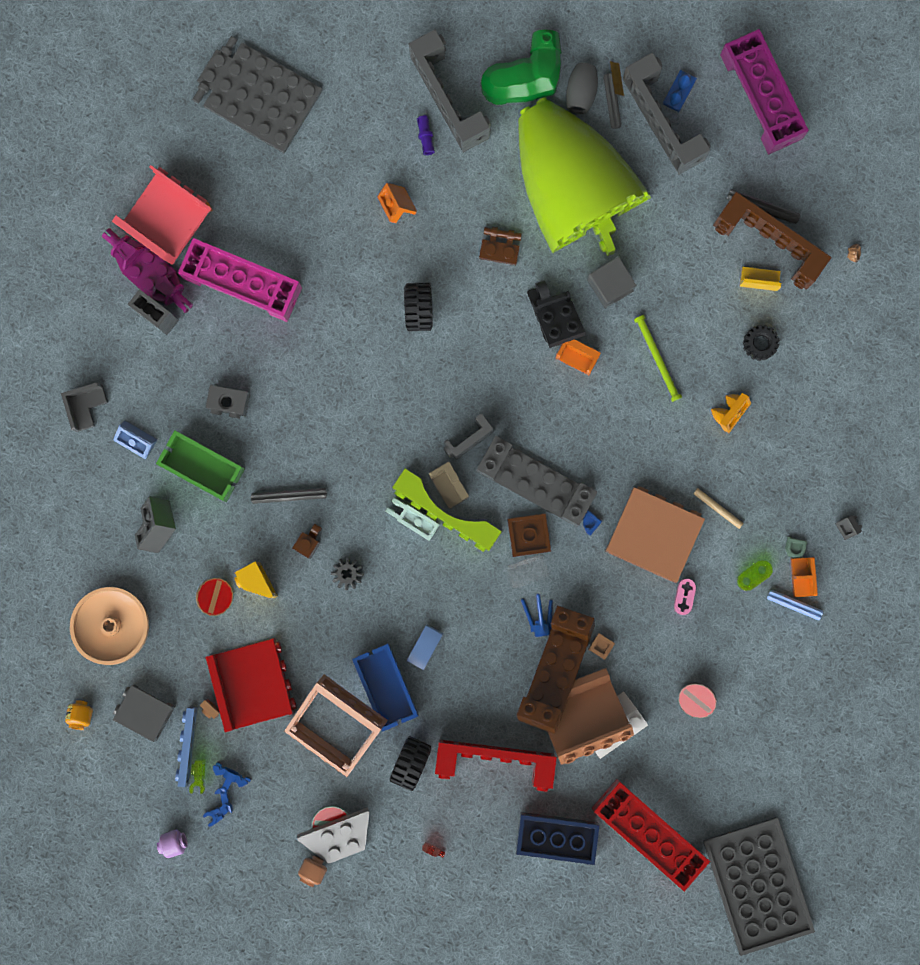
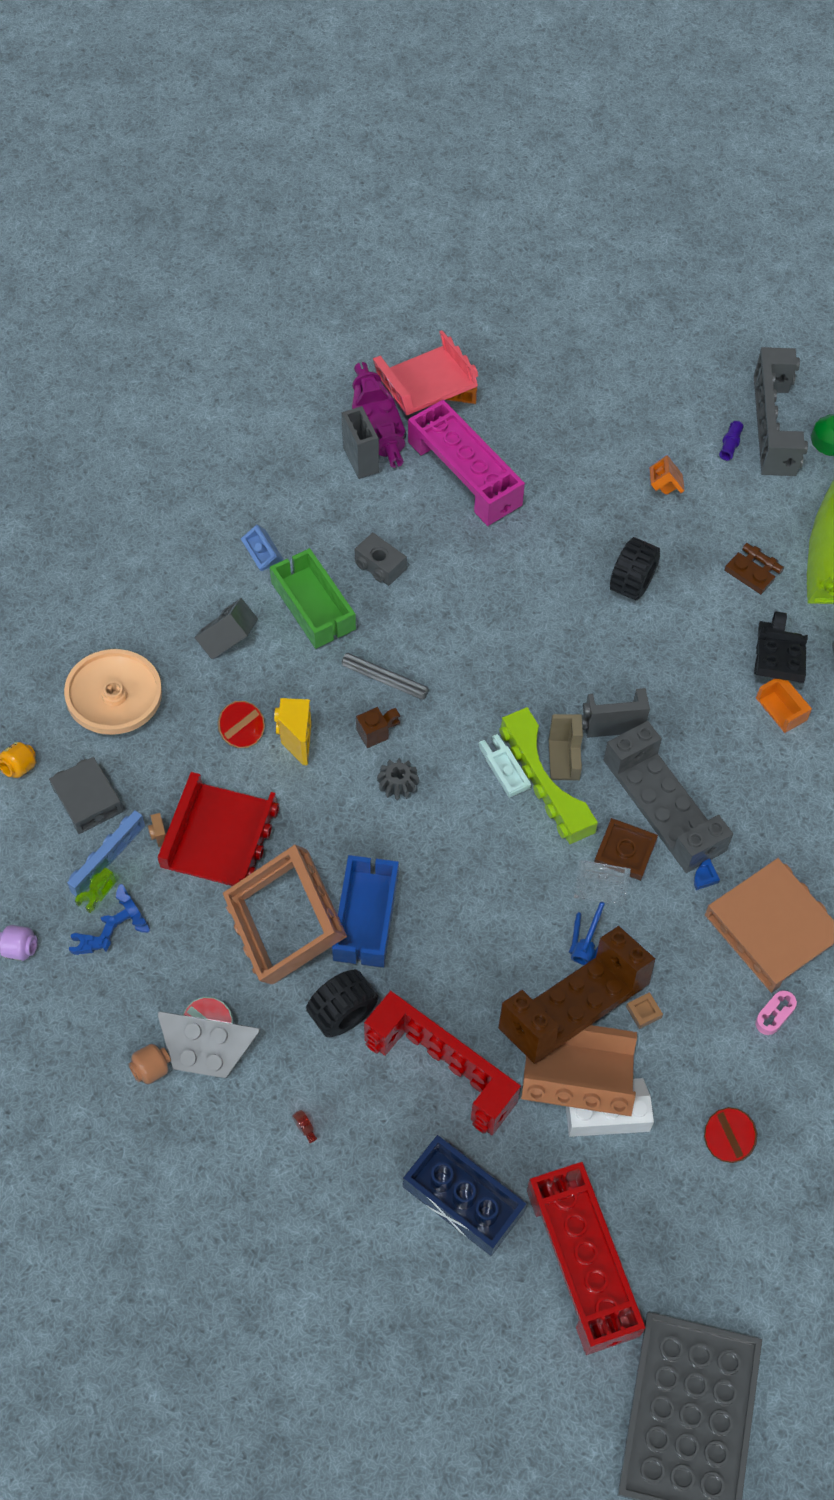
camera: 25 degrees right, 25 degrees down
(79, 402) = (234, 486): dark grey panel -> none
(256, 94) = (582, 335): dark grey plate -> none
(424, 647) = (436, 898): medium blue slope -> none

